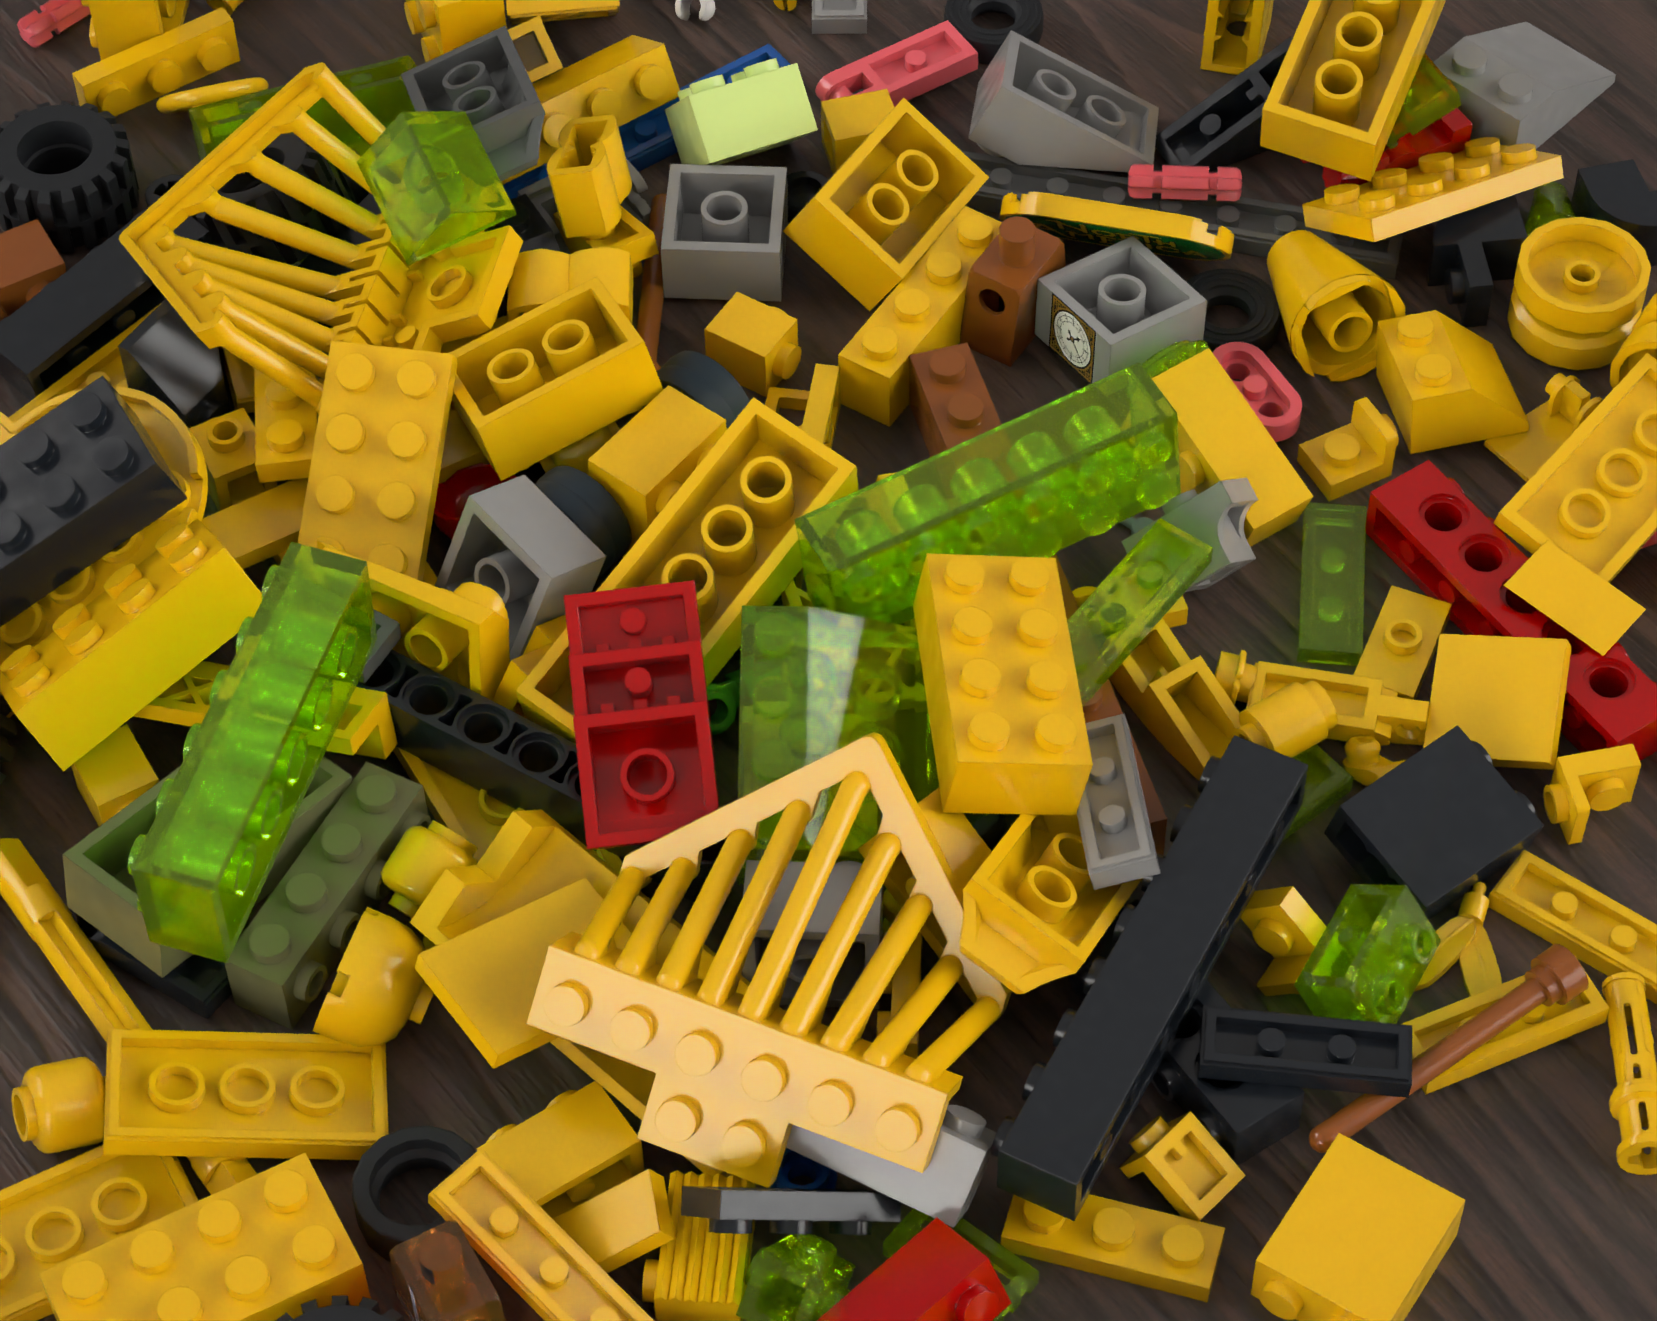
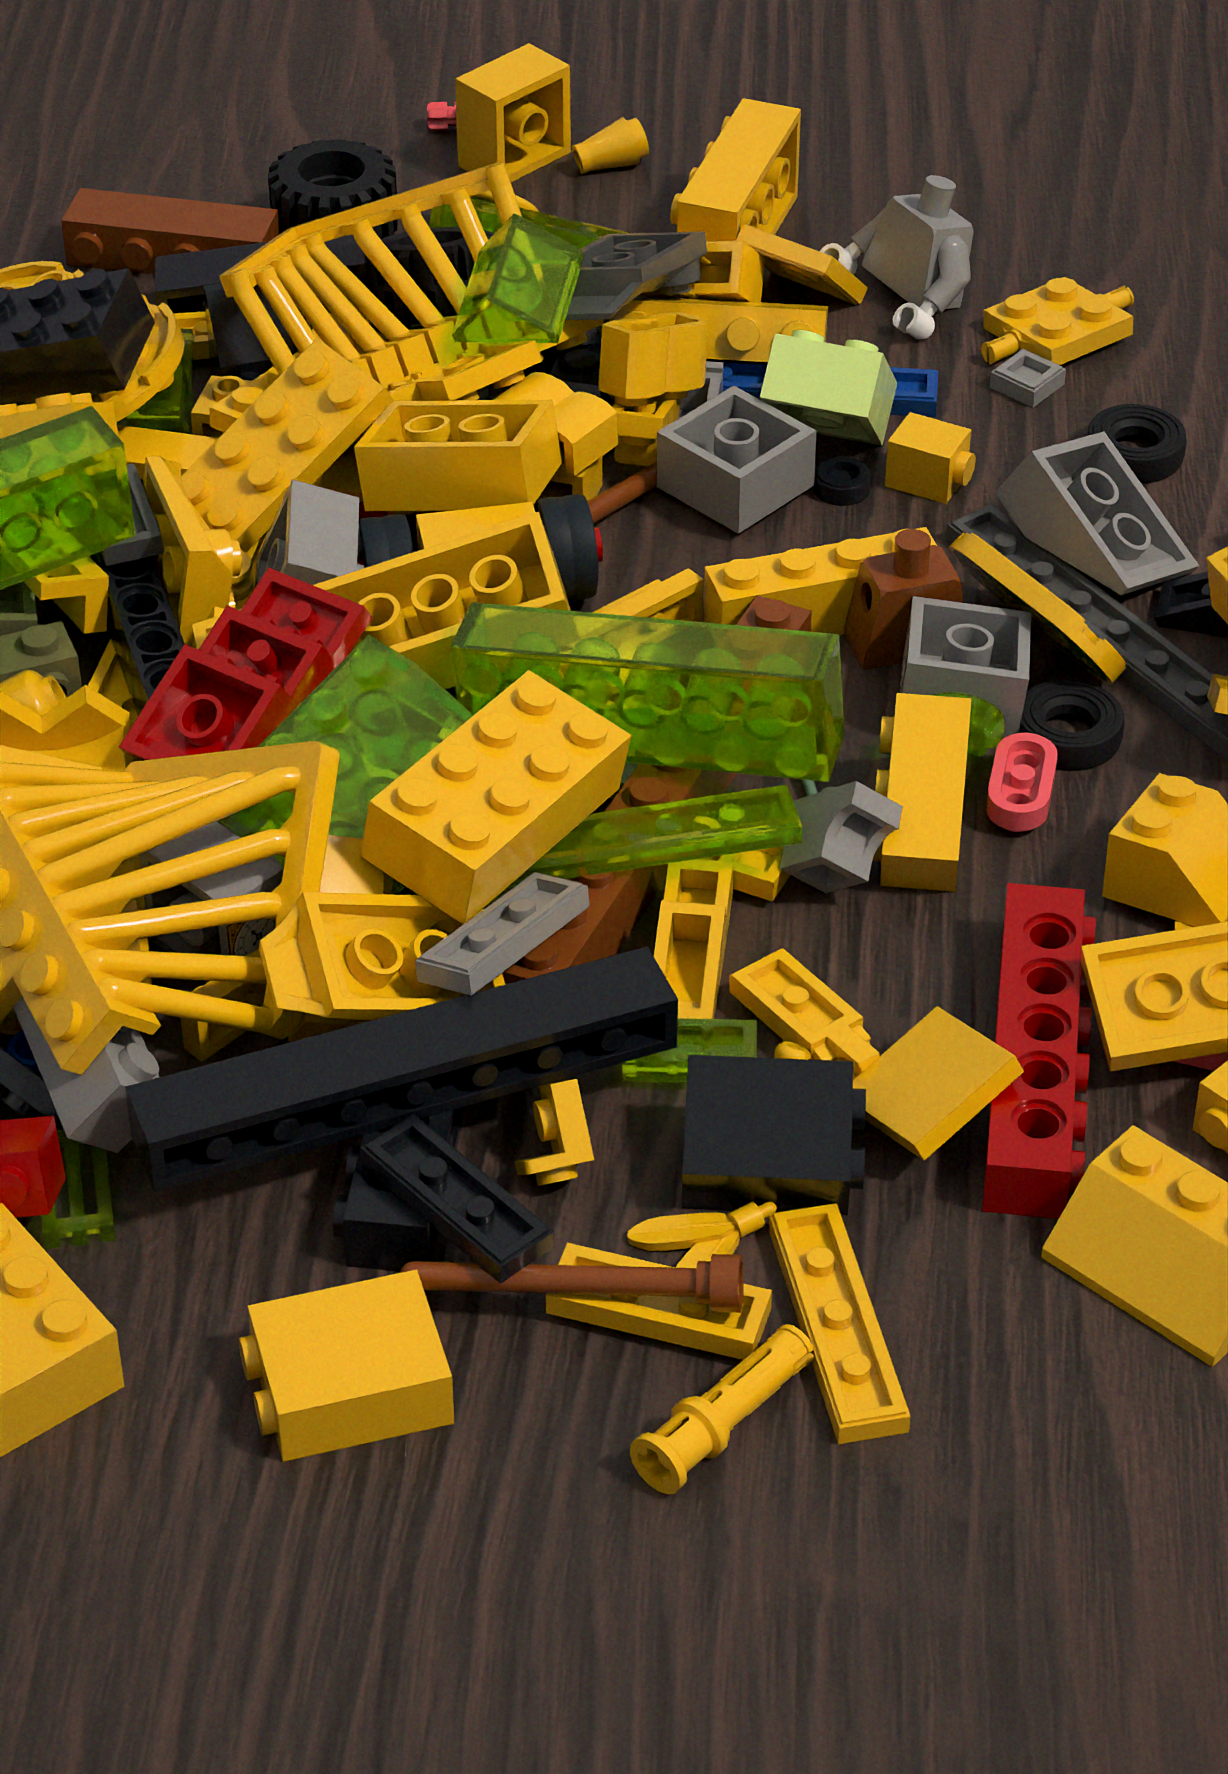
camera: 40 degrees right, 10 degrees down
(159, 64) = (530, 170): yellow plate -> none
(754, 343) = (673, 537): yellow brick -> none
(886, 204) = (868, 485): yellow brick -> none
(905, 67) = (1011, 434): coral plate -> none
(1120, 1244) = (197, 1250): yellow plate -> none
(1183, 1164) = (296, 1227): yellow bracket -> none
(1184, 182) = (1139, 613): coral axle -> none
(1235, 675) = (750, 945): yellow plate -> none
(1289, 719) = (732, 988): yellow brick -> none
(1329, 305) = (1137, 743): yellow cone -> none
(1332, 584) = (920, 943): clear neon green tile -> none
(1351, 454) = (1049, 862): yellow bracket -> none
(1369, 956) = (597, 1183): clear neon green brick -> none
(1404, 641) = (896, 1013): yellow plate -> none
(1575, 597) = (1077, 1045): yellow sticker -> none
(1587, 782) = (942, 1188): yellow bracket -> none

